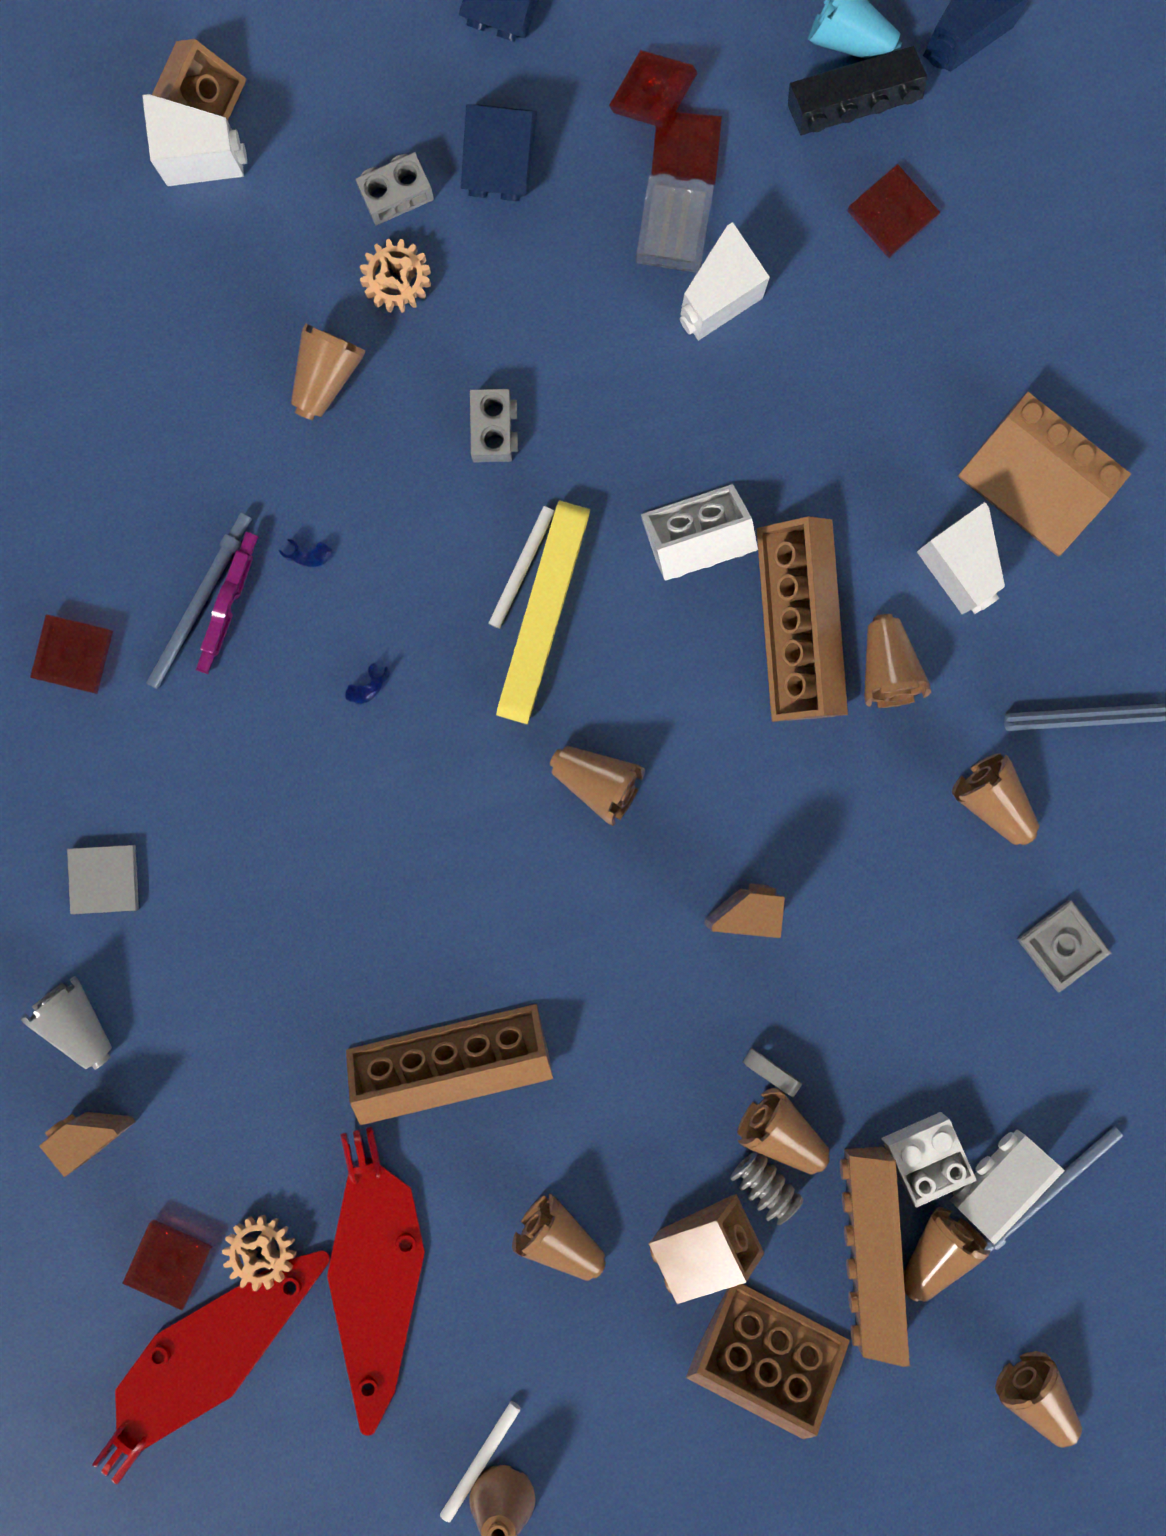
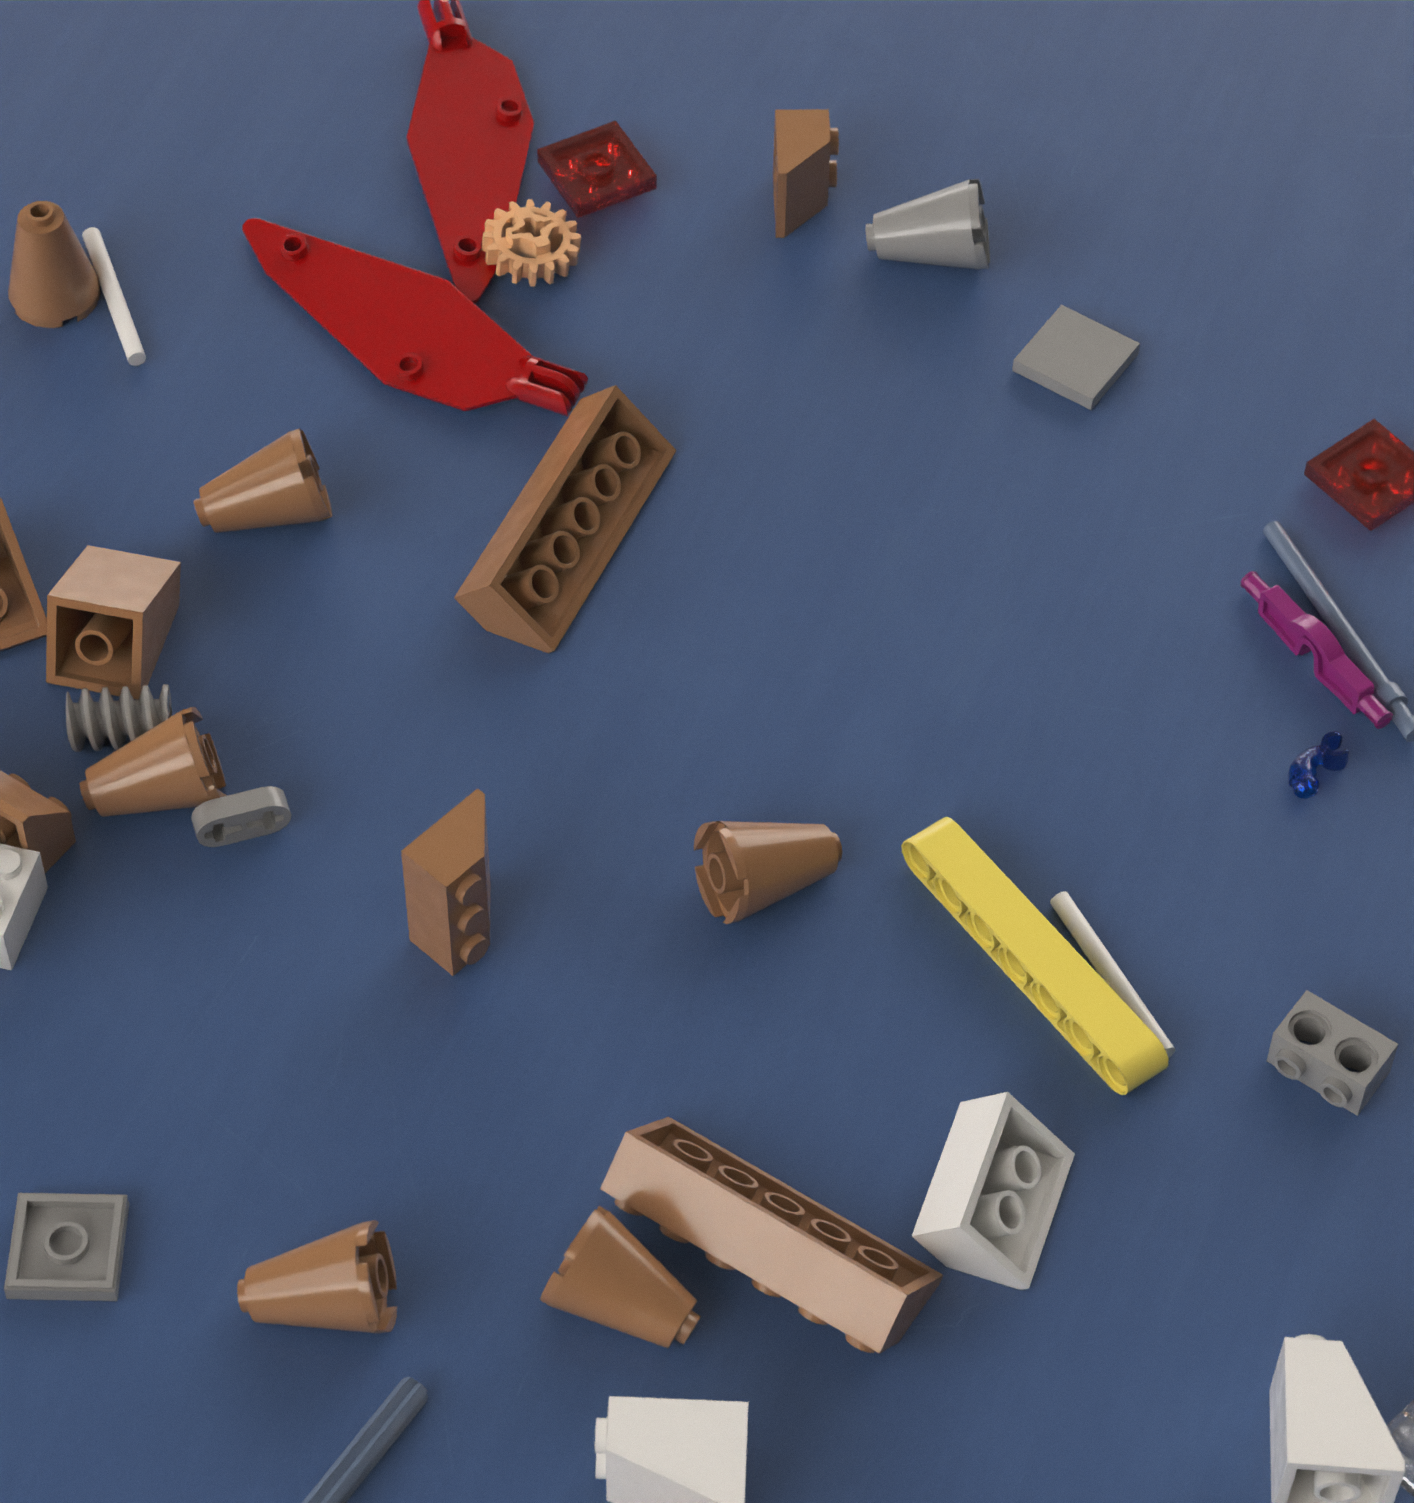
camera: 125 degrees right, 35 degrees down
(367, 692) = (1084, 716): clear blue arm -> none

